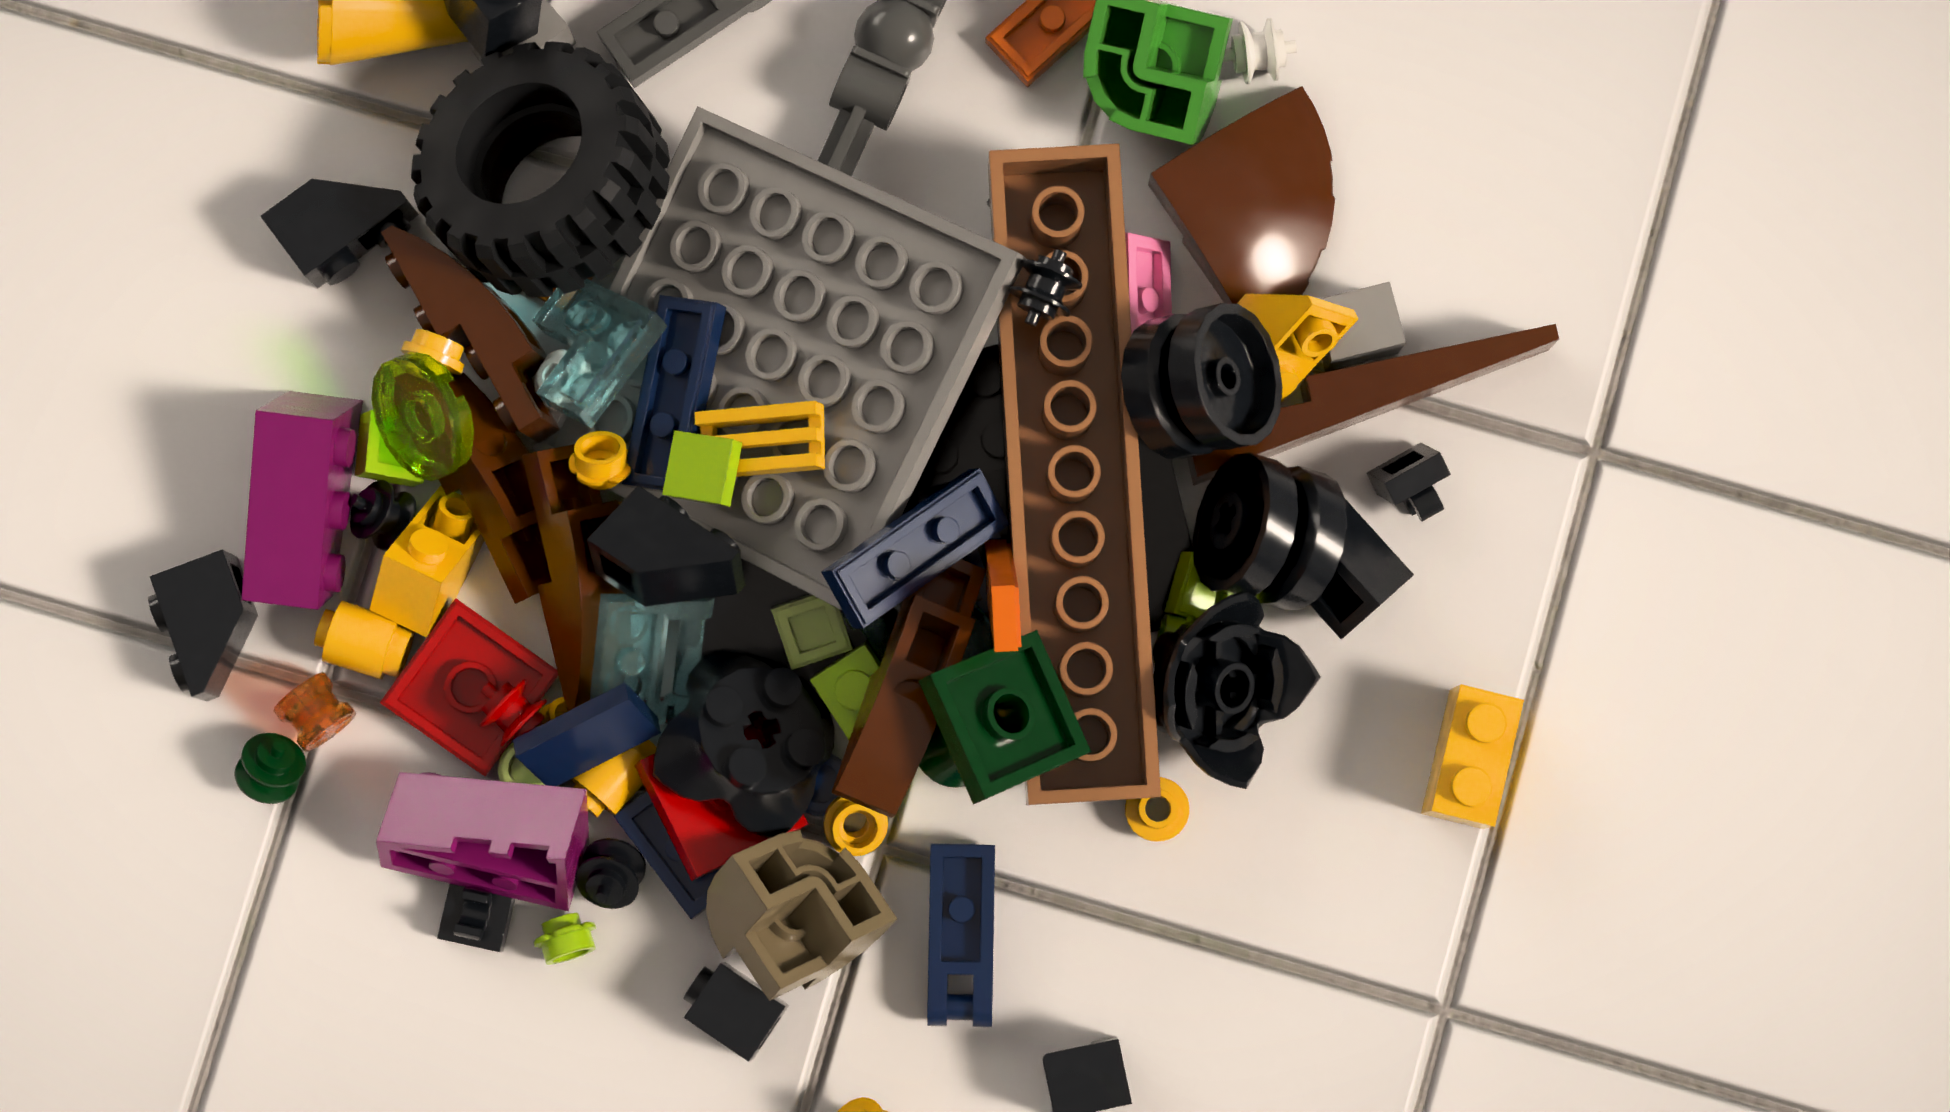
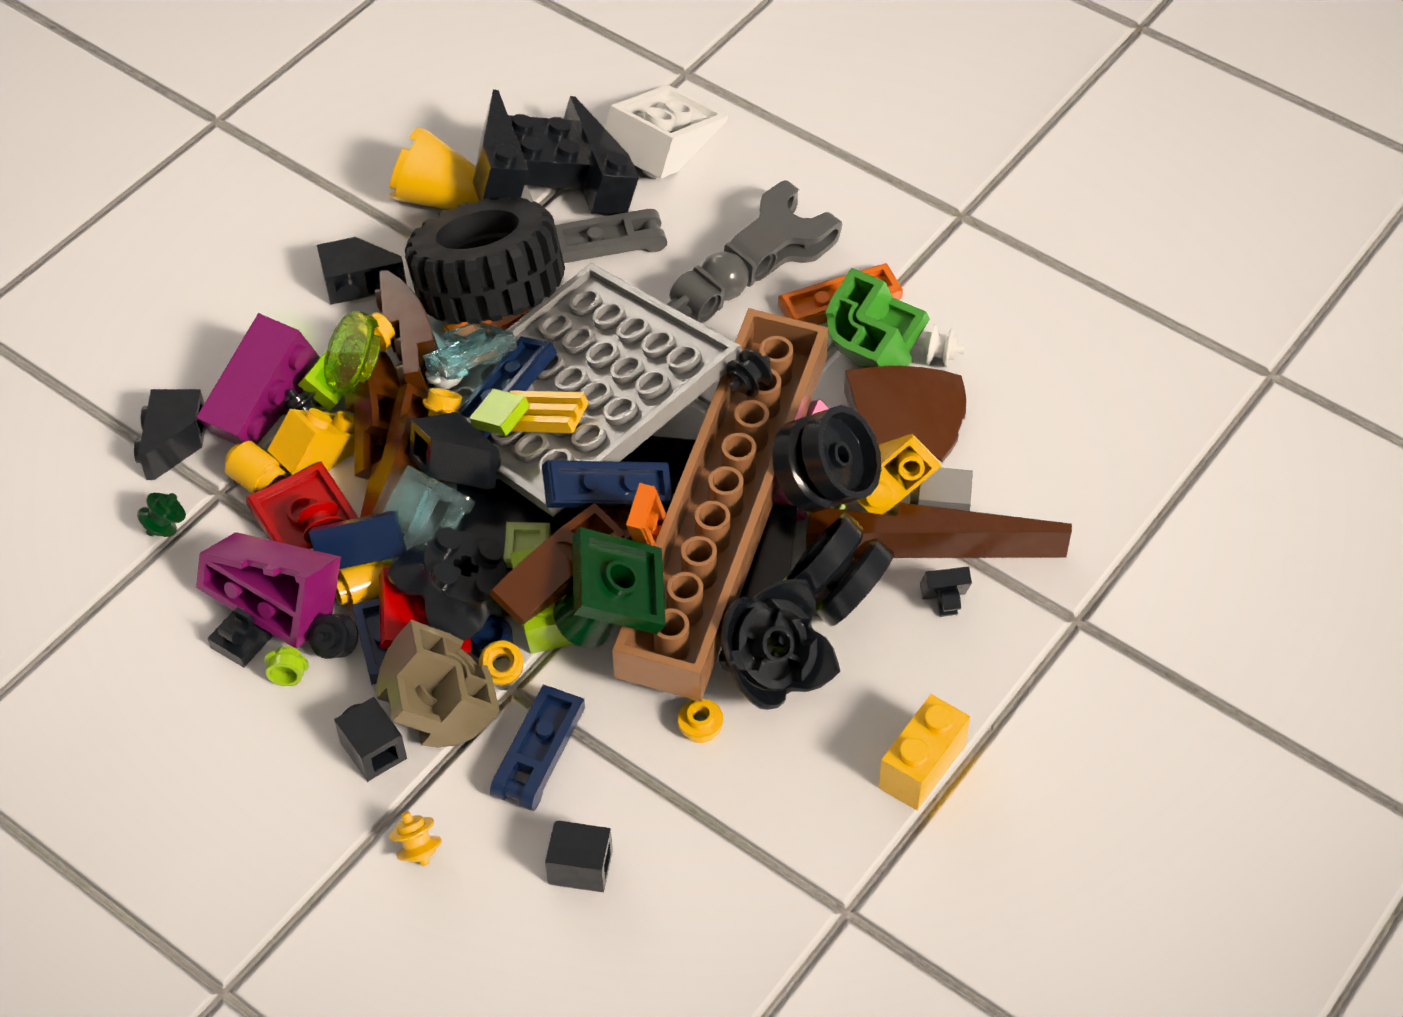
camera: 20 degrees right, 30 degrees down
(314, 712) = (205, 495): clear orange wheel -> none
(1363, 578) = (885, 620): black slope -> none

